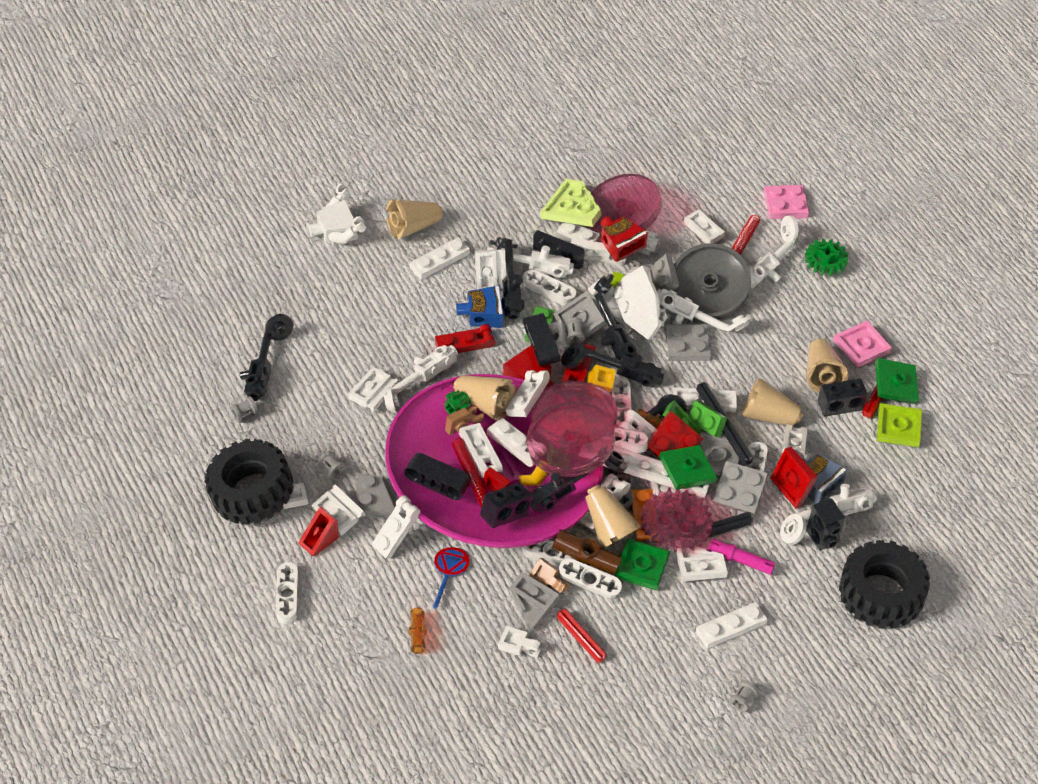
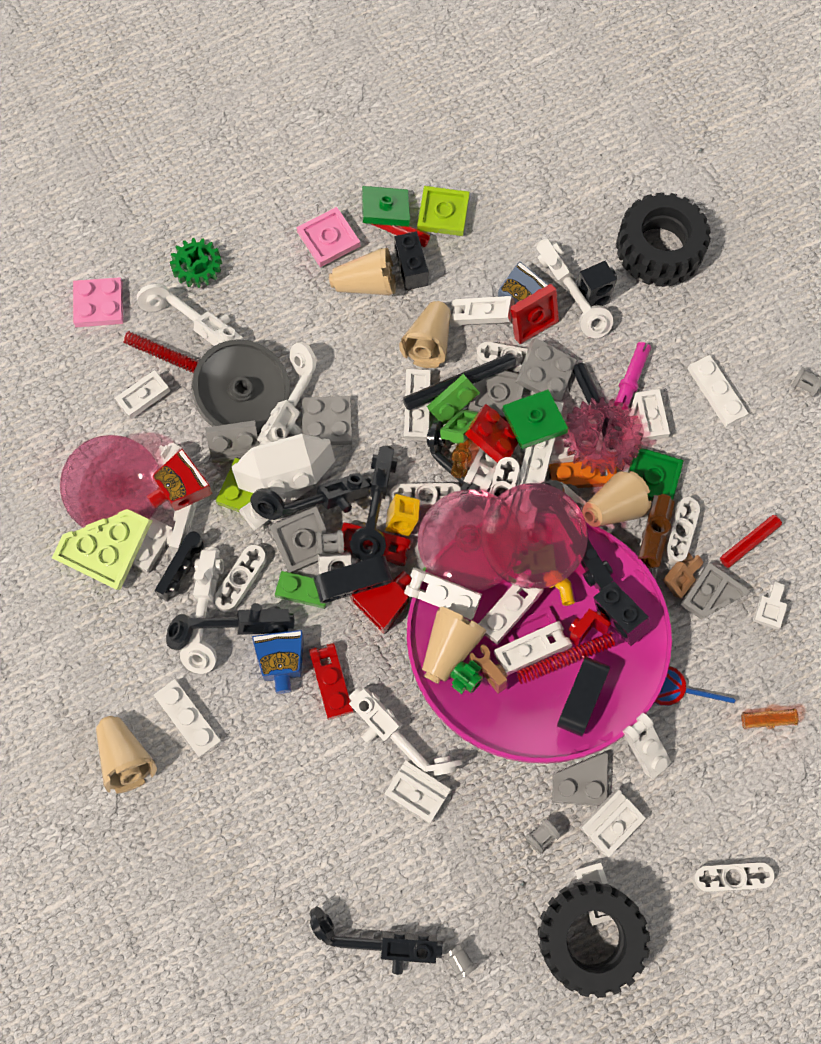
camera: 90 degrees left, 20 degrees up
(320, 532) = (650, 844): red slope -> none
(336, 220) = (125, 861): white torso -> none
(490, 268) = (223, 648): white plate -> none

